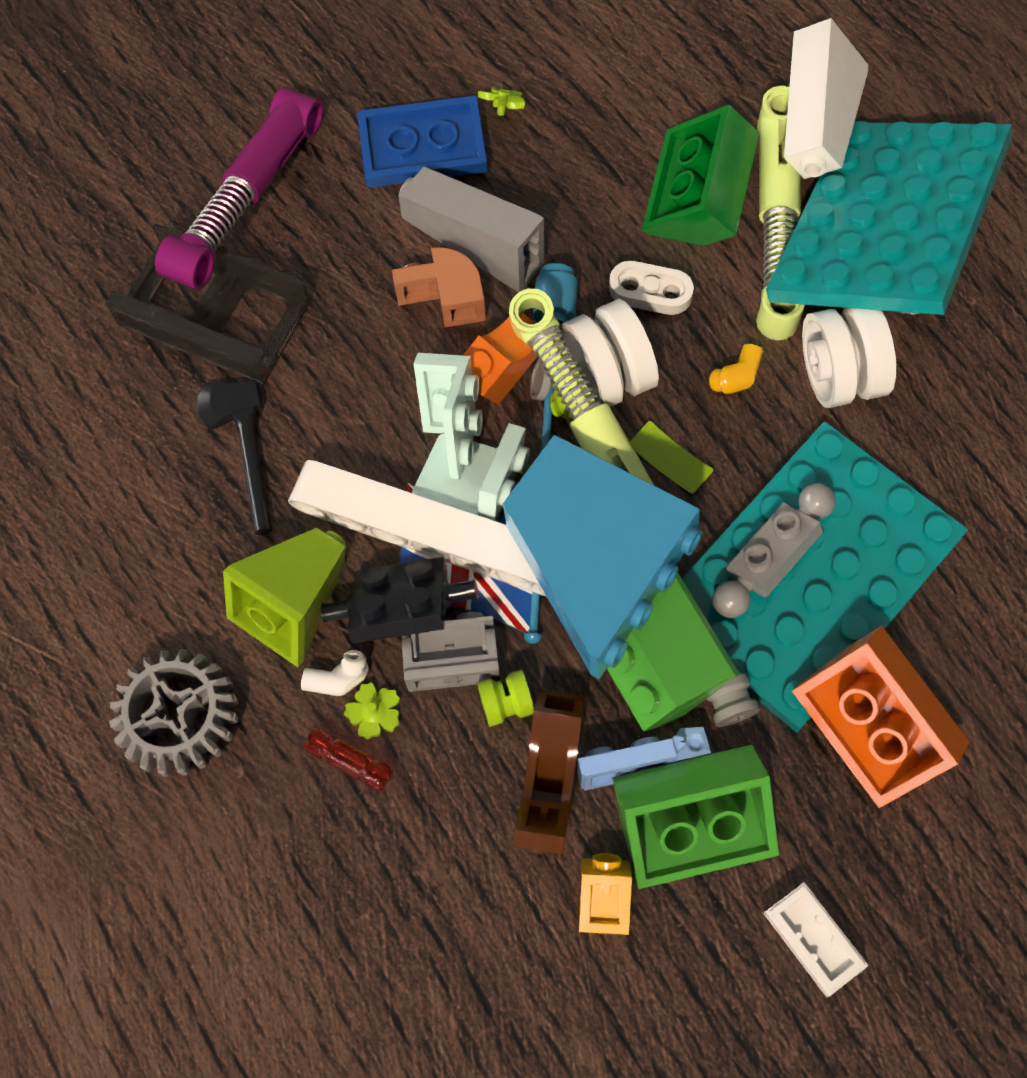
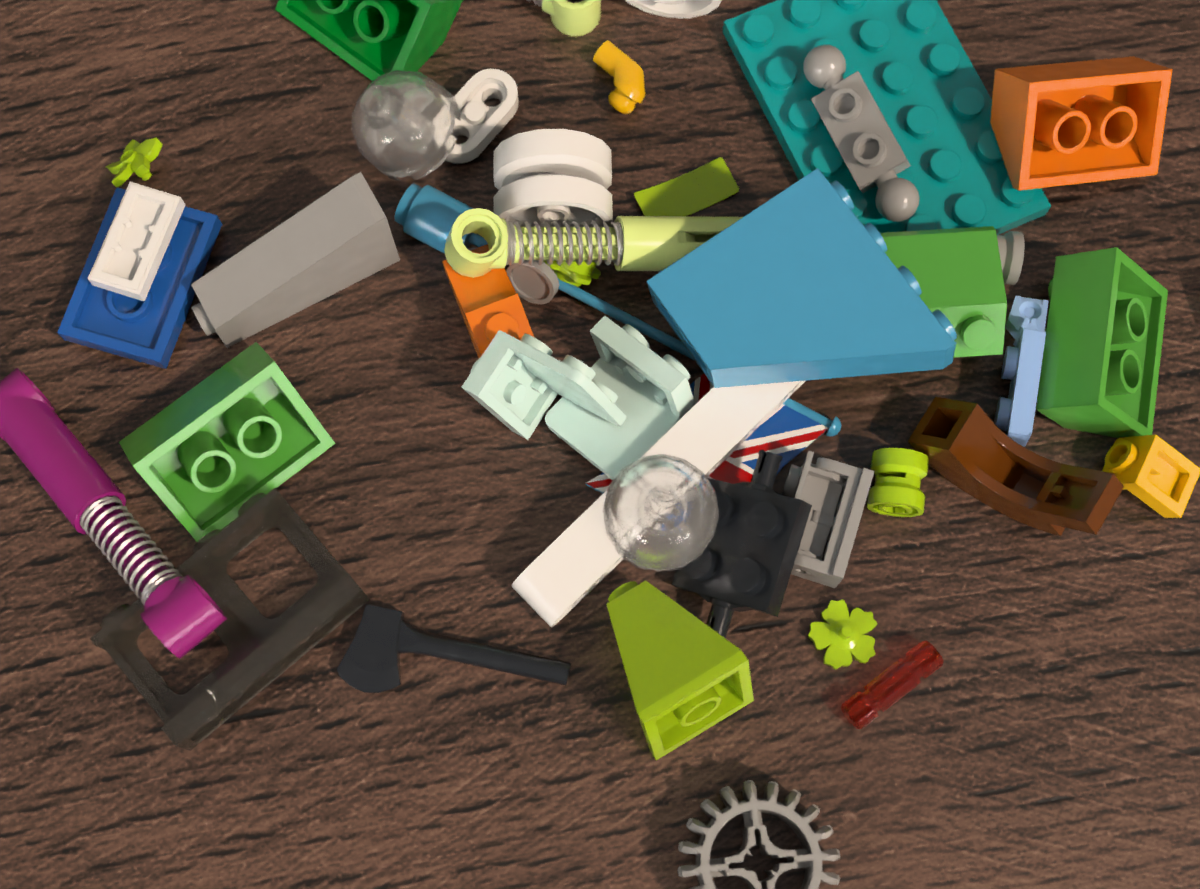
camera: 70 degrees left, 5 degrees up
(329, 243) = (226, 442): none -> bright green slope
(341, 679) = (793, 657): white arm -> none
(391, 527) = (656, 539): none -> clear cylinder
(438, 121) = (136, 241): none -> white plate
(449, 278) = (356, 321): nougat brick -> none
(613, 239) = (405, 124): none -> clear cylinder

